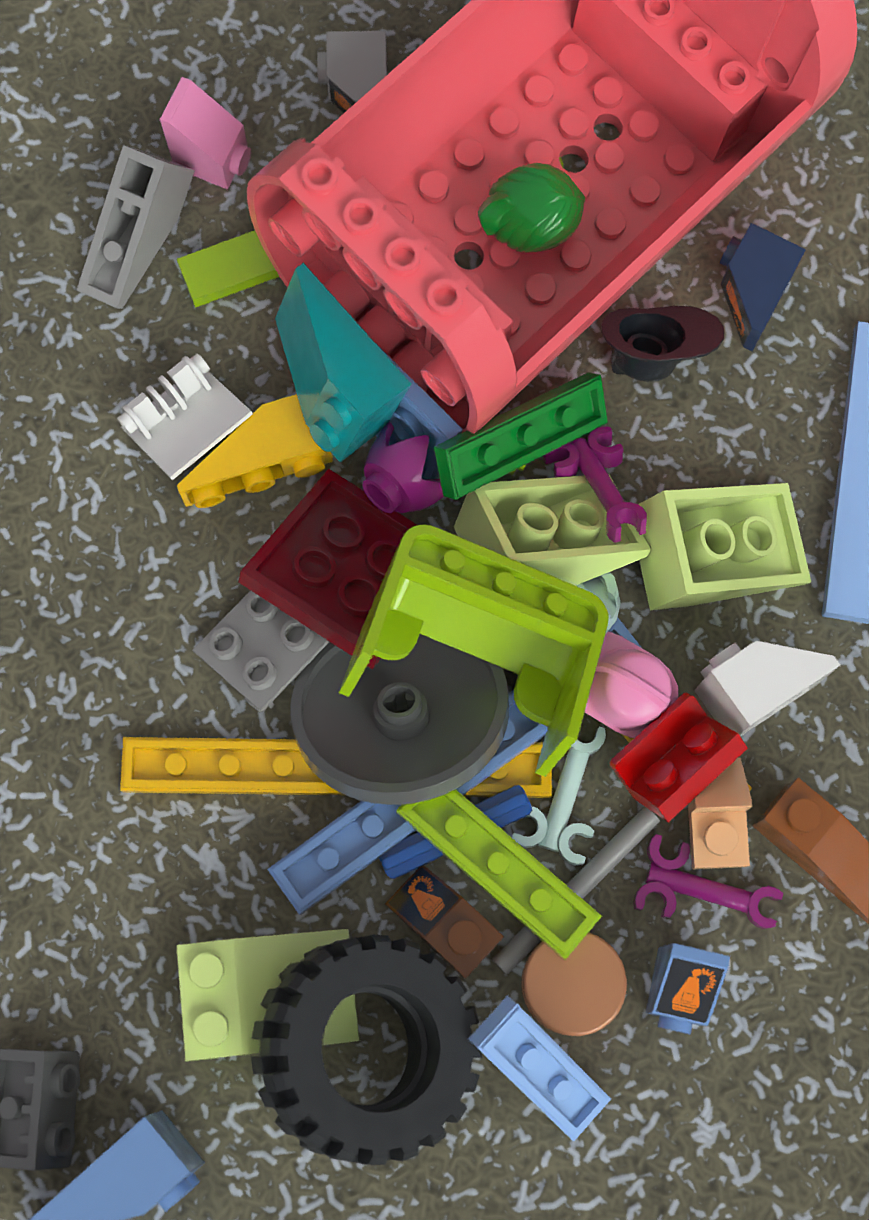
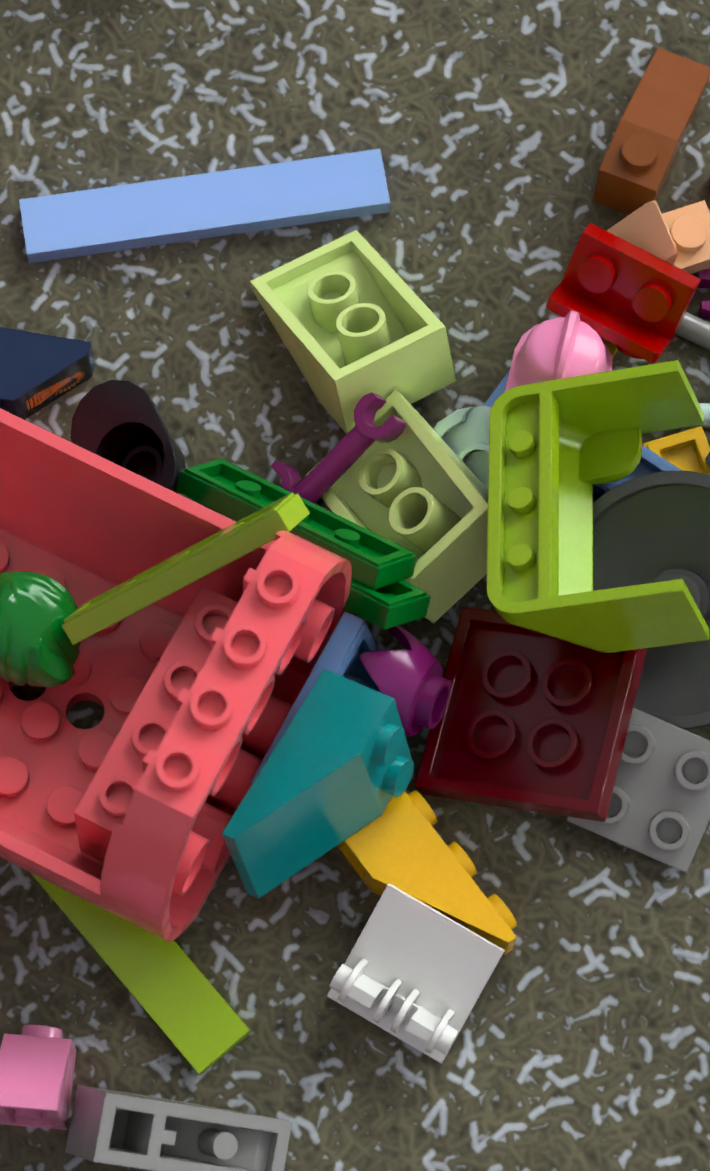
camera: 110 degrees left, 5 degrees down
(525, 307) = (185, 567): none -> lime tile
(555, 432) = (241, 493): none -> green tile
(759, 681) = (513, 234): white slope -> none

